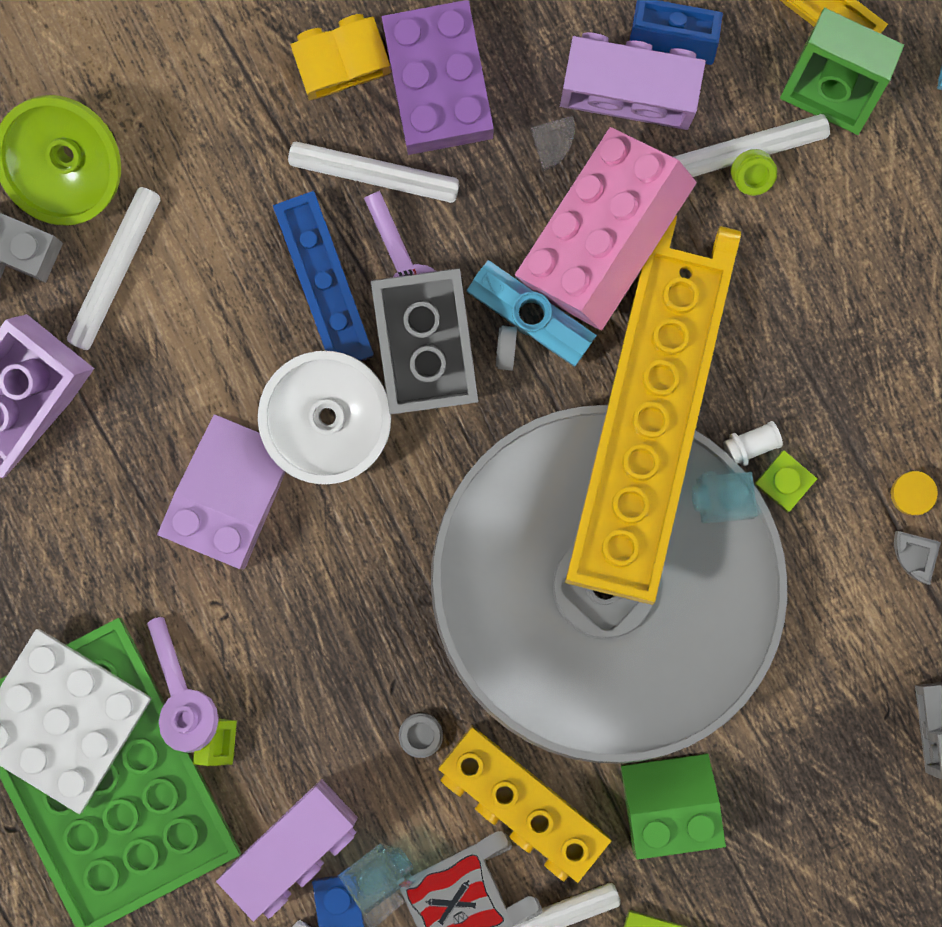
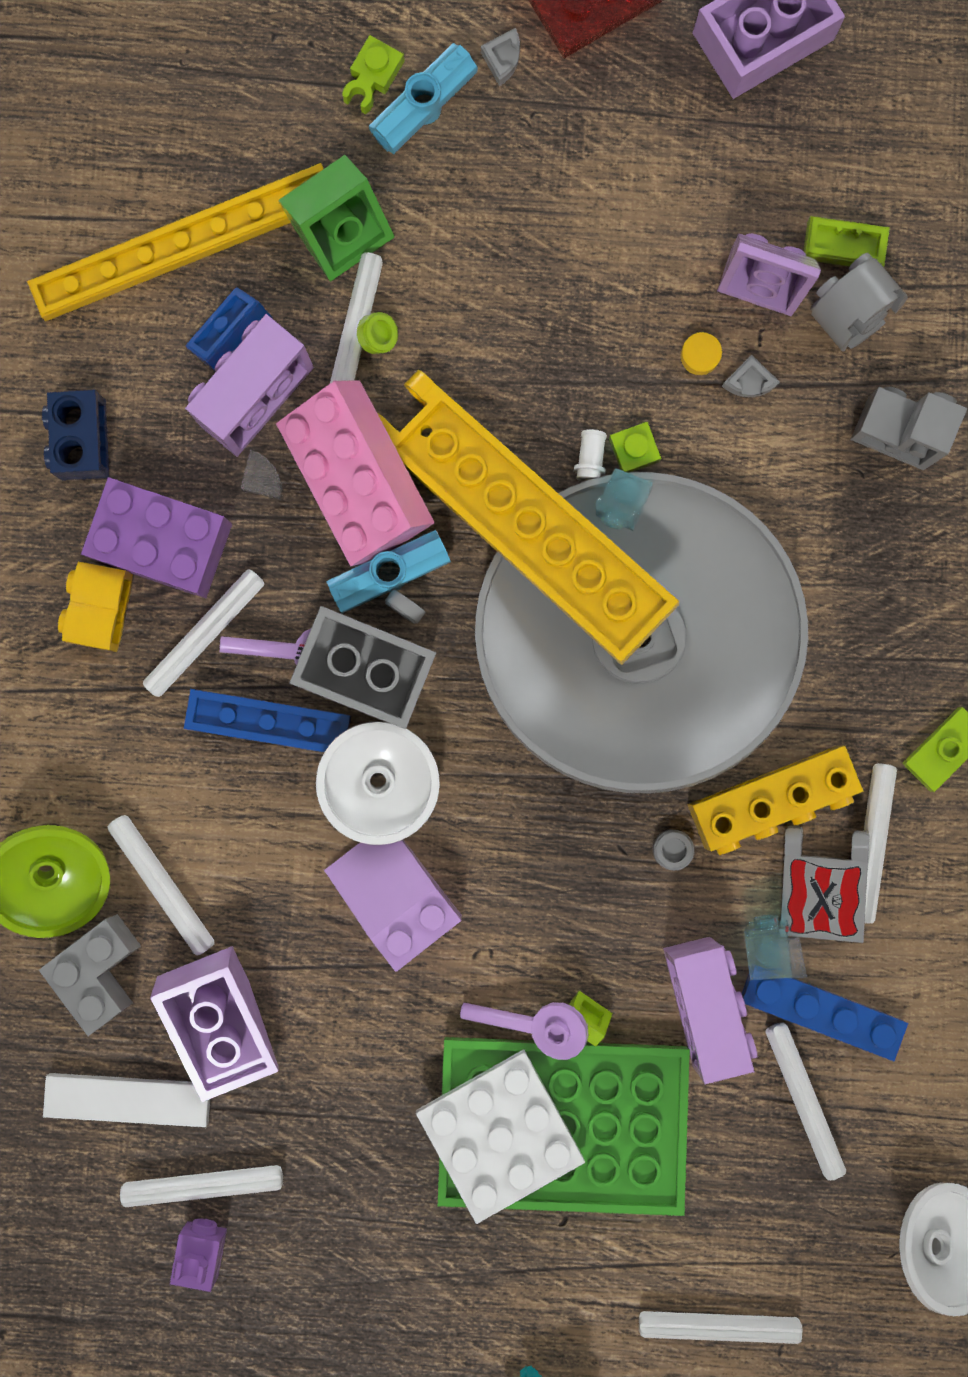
camera: 60 degrees left, 0 degrees up
(672, 806) = (845, 682): bright green slope -> none

